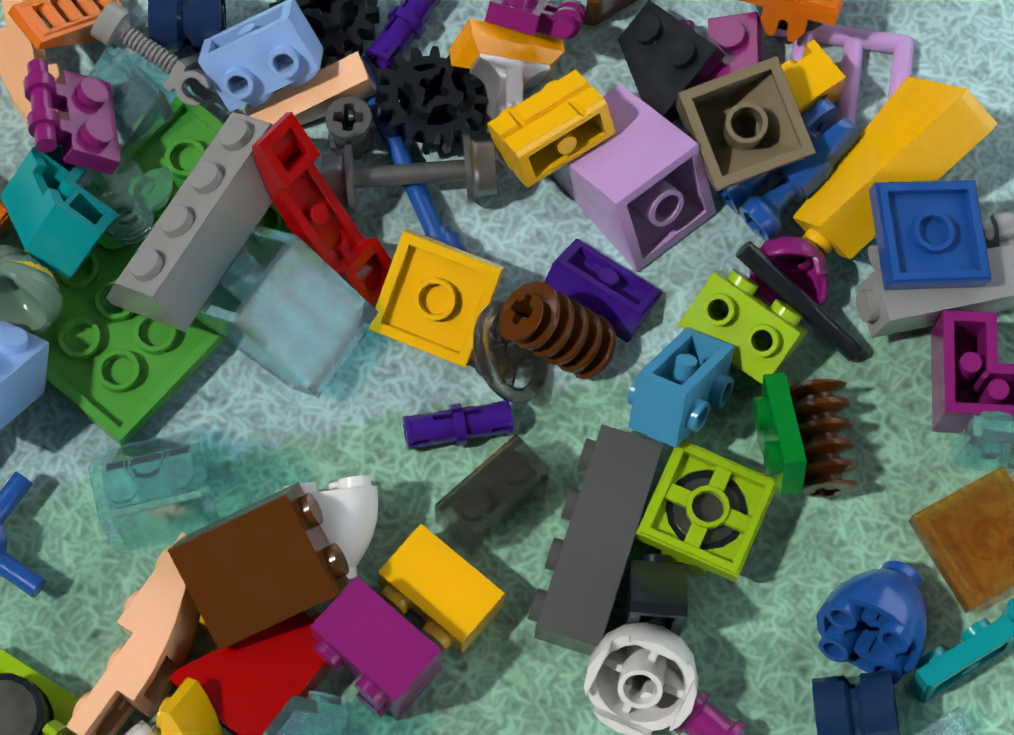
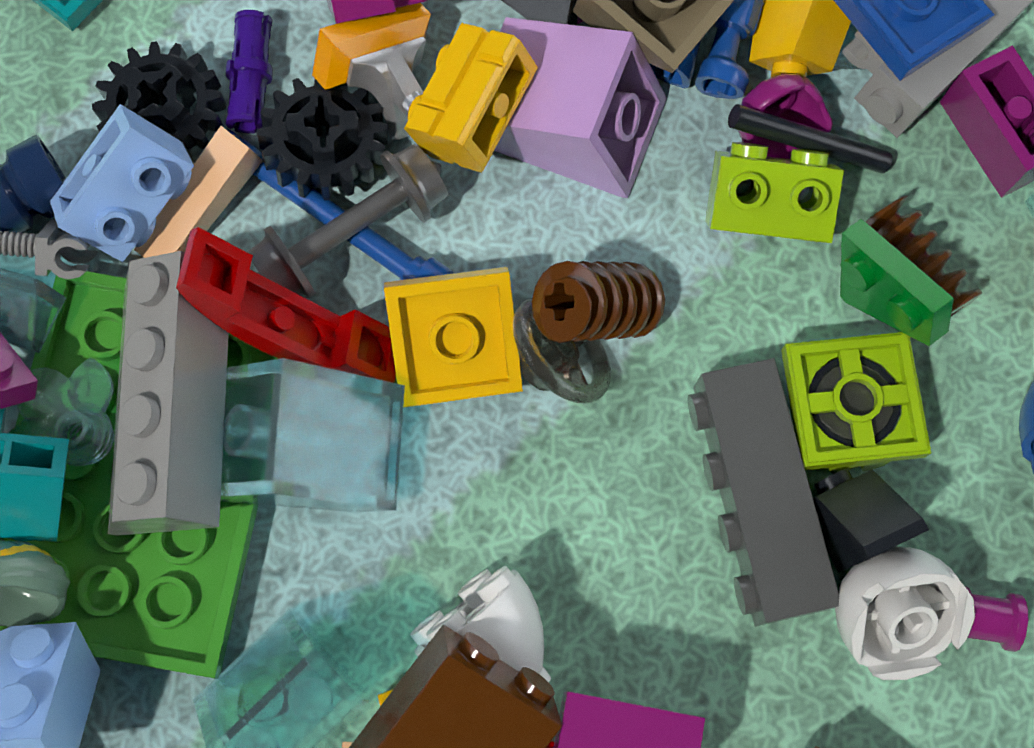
camera: 30 degrees left, 5 degrees up
(337, 121) = (264, 195): dark grey bush -> none
(440, 589) = (641, 638): yellow brick -> none
(458, 424) = (550, 454): dark purple pin -> none
(492, 495) = (634, 507): clear smoke brick -> none
(603, 287) = (606, 232): dark purple slope -> none
(681, 387) = (756, 293): dark azure brick -> none

